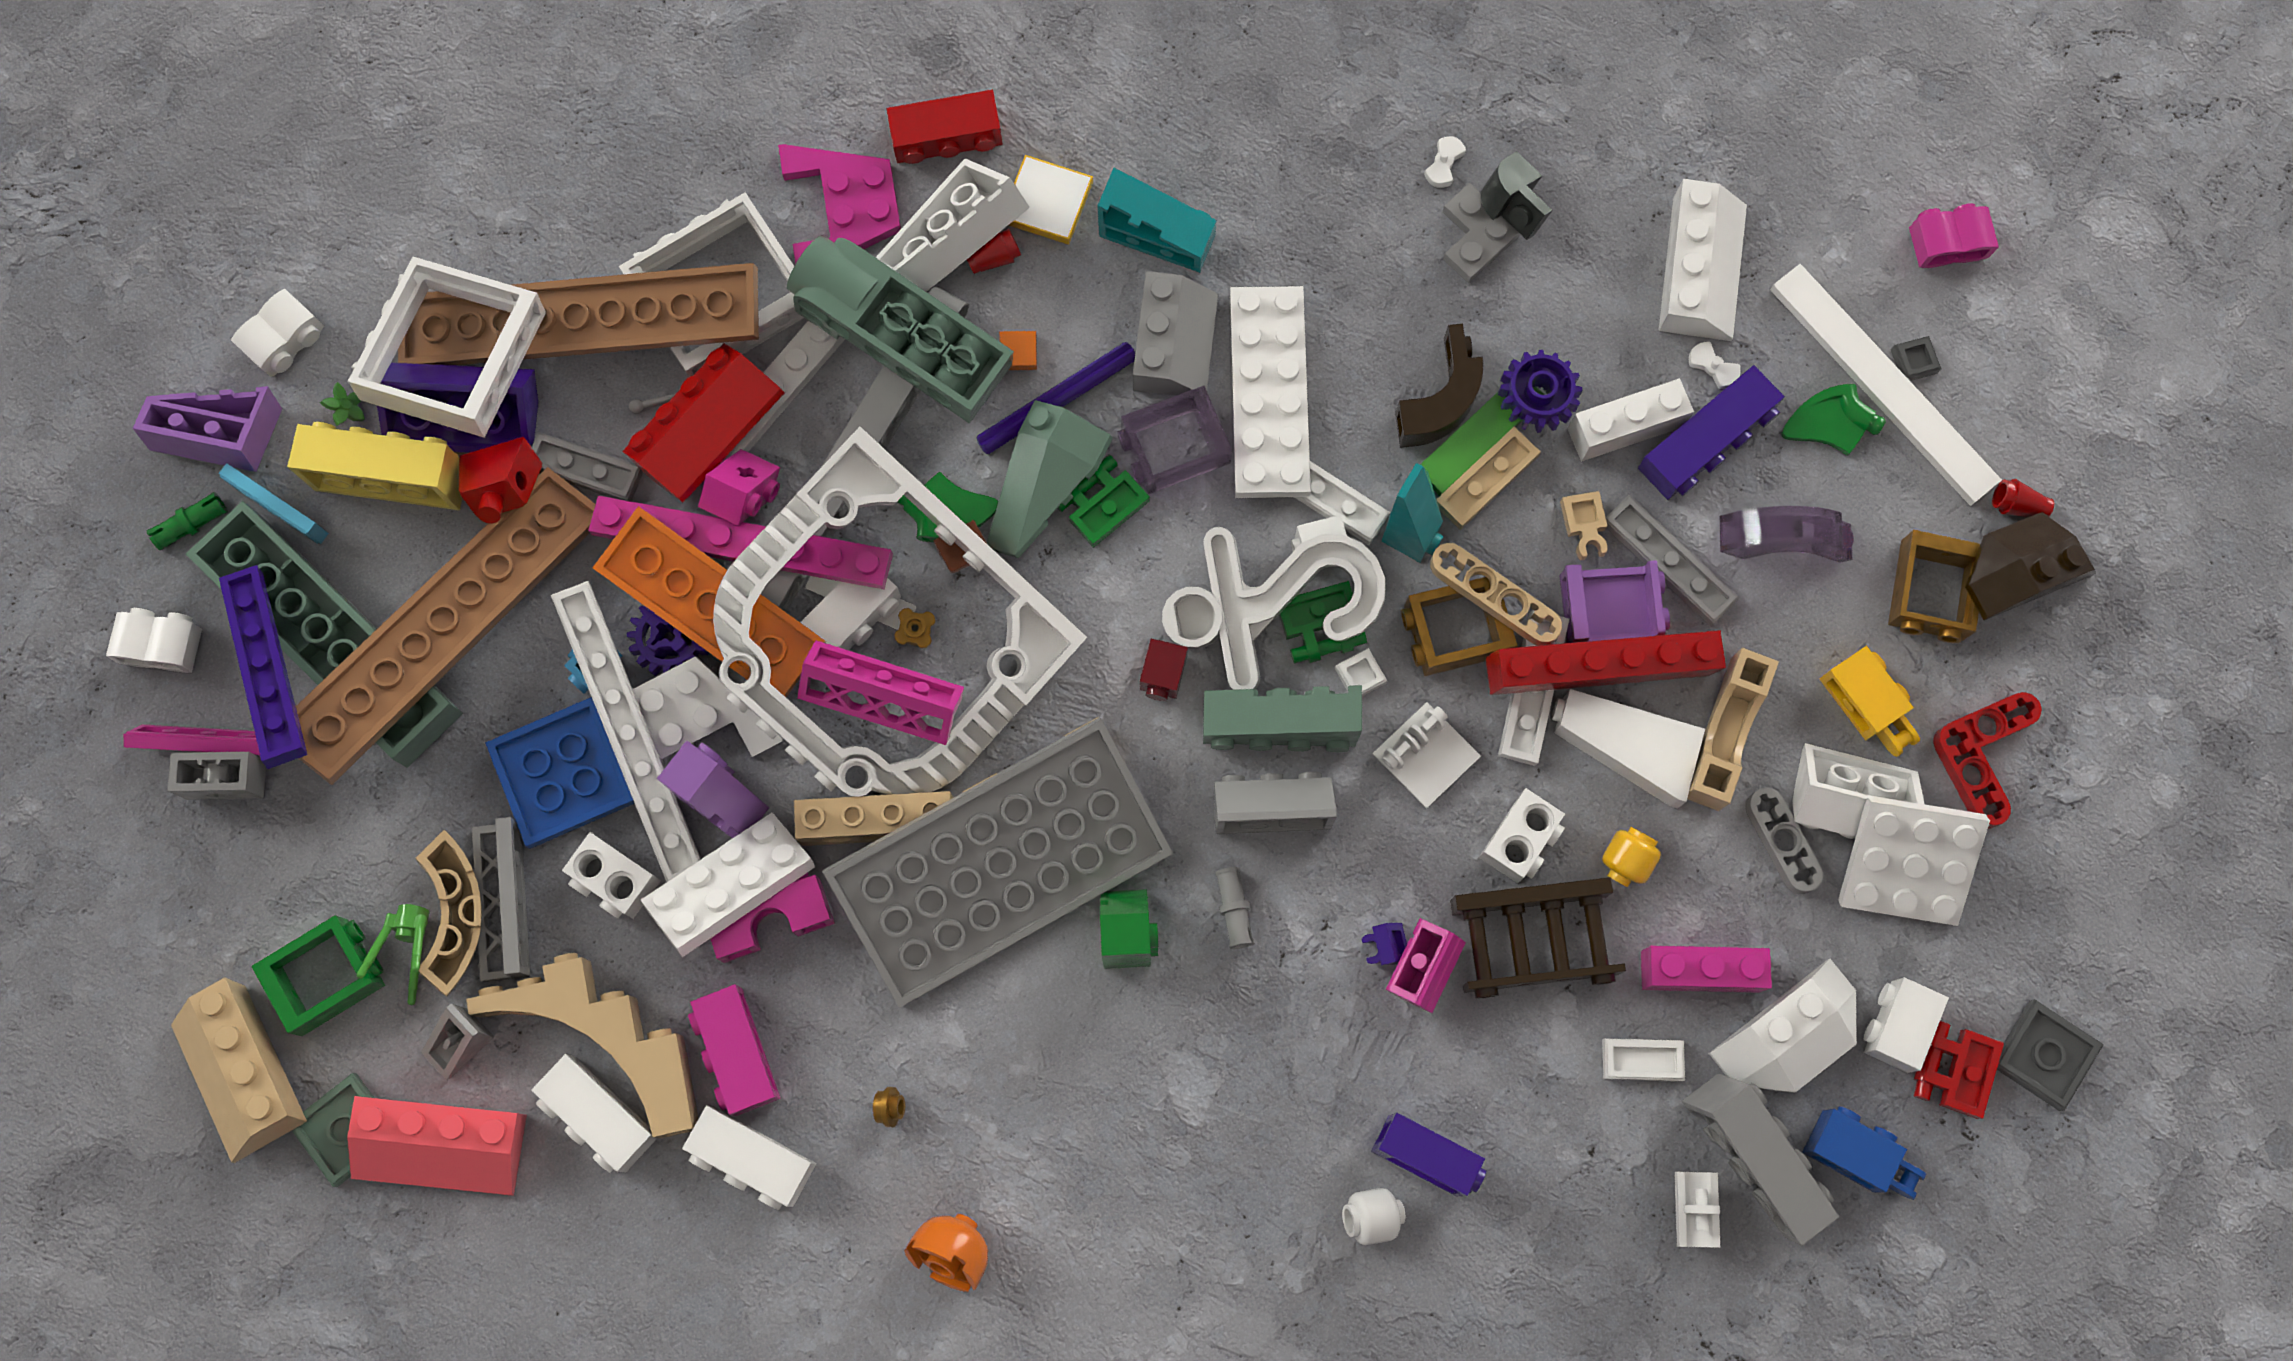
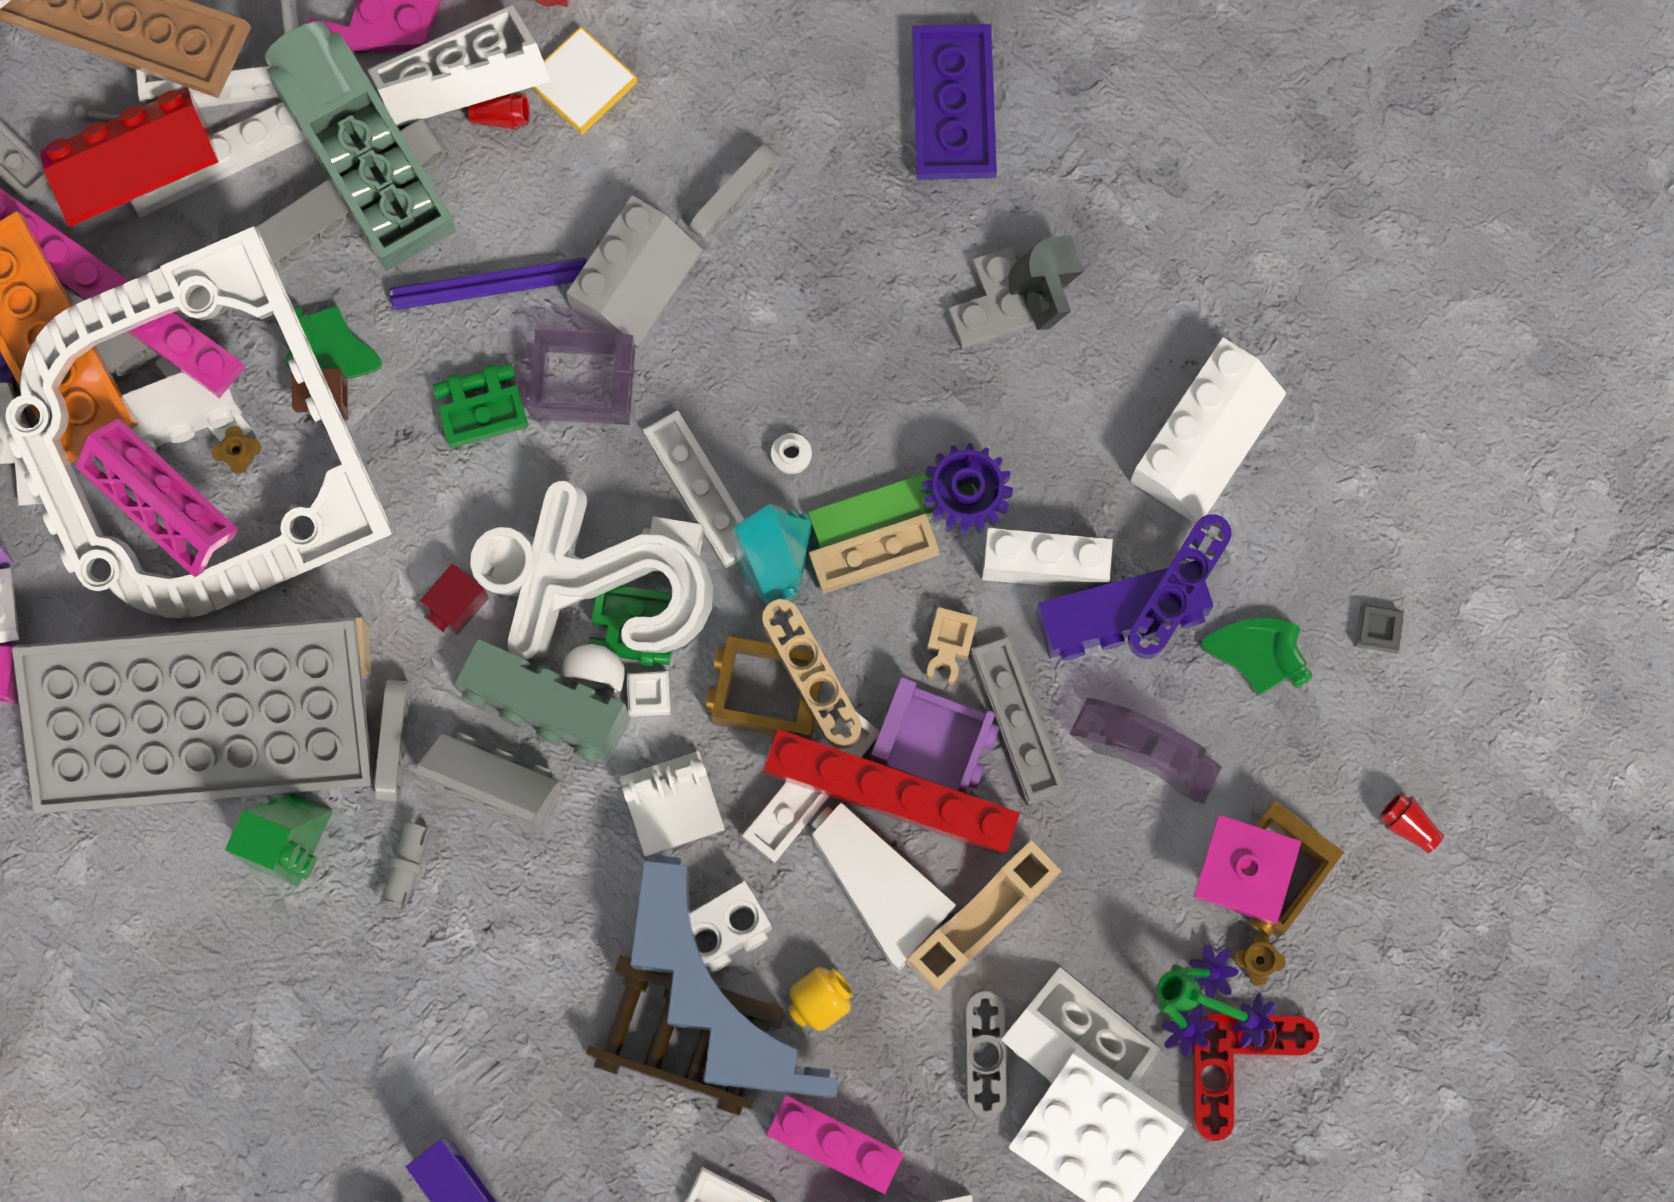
camera: 25 degrees right, 0 degrees up
(739, 487) = (131, 235): dark pink brick -> none
(859, 818) = (84, 609): tan brick -> none
(1024, 347) = (477, 219): orange tile -> none
(1046, 465) = (441, 344): sand green wedge -> none
(1154, 222) = (667, 147): teal wedge -> none
(1172, 808) = (393, 740): none -> light grey beam
(1224, 235) = (735, 193): none -> light grey beam
(1269, 392) = (701, 370): white plate -> none
(1310, 670) = (594, 667): none -> white hair
(1363, 86) = (954, 102): none -> dark purple plate
(1373, 436) = (791, 465): none -> white plate
(1389, 941) = (536, 973): dark purple tile -> none
(1426, 965) = (557, 1011): dark pink brick -> none
(1436, 416) = (873, 465): dark brown arch -> none
(1439, 172) = (1009, 205): white piece -> none
(1593, 924) = (737, 1049): none -> sand blue arch
(1704, 358) = (1160, 530): white piece -> none
(1756, 392) = (1181, 587): none -> dark purple beam
(1872, 699) = (1145, 948): yellow brick -> none
(1885, 385) = (1333, 641): white tile -> none
(1922, 593) = (1247, 869): none -> dark pink plate
(1928, 713) = (1181, 991): none -> dark purple plant
(1953, 236) = (1482, 519): dark pink brick -> none
(1970, 659) = (1260, 972): none -> pearl gold plate
(2025, 564) = (1374, 889): dark brown wedge -> none

